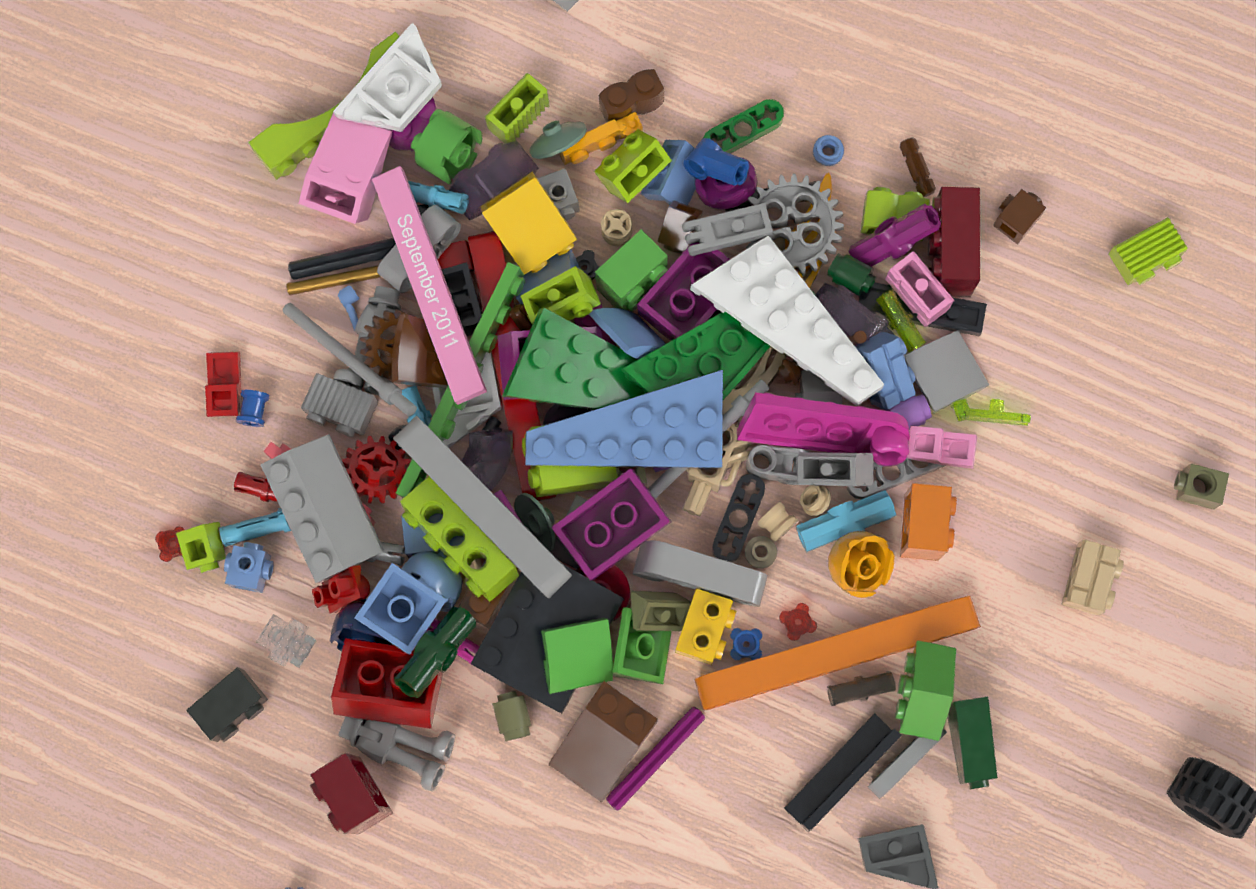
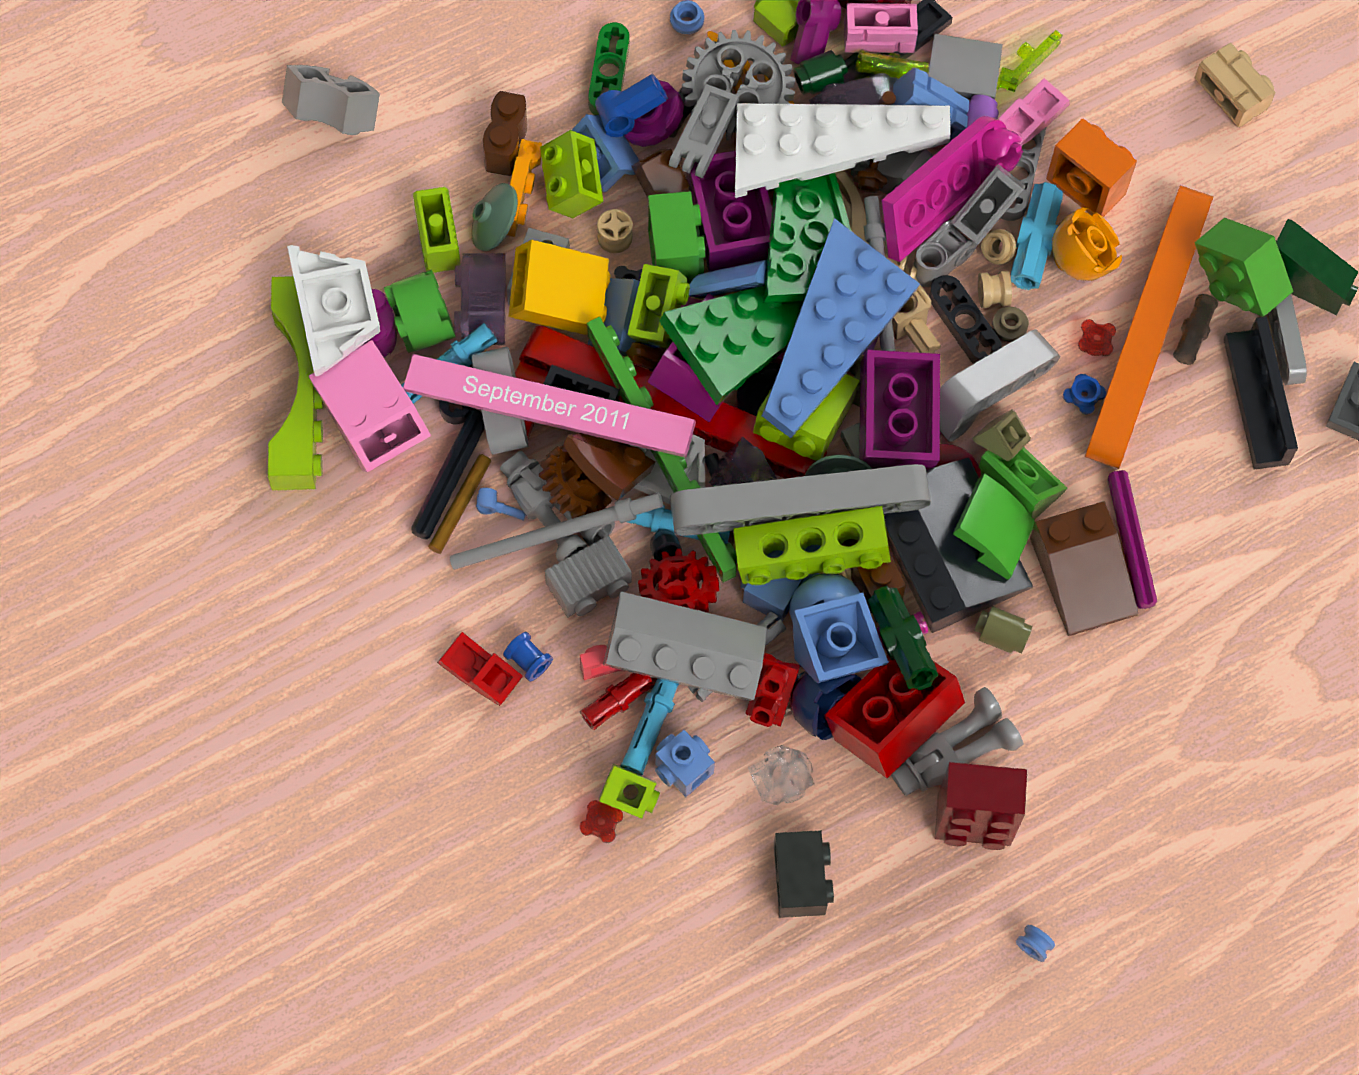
camera: 60 degrees left, 10 degrees down
(704, 627) = (1045, 413): yellow brick -> none

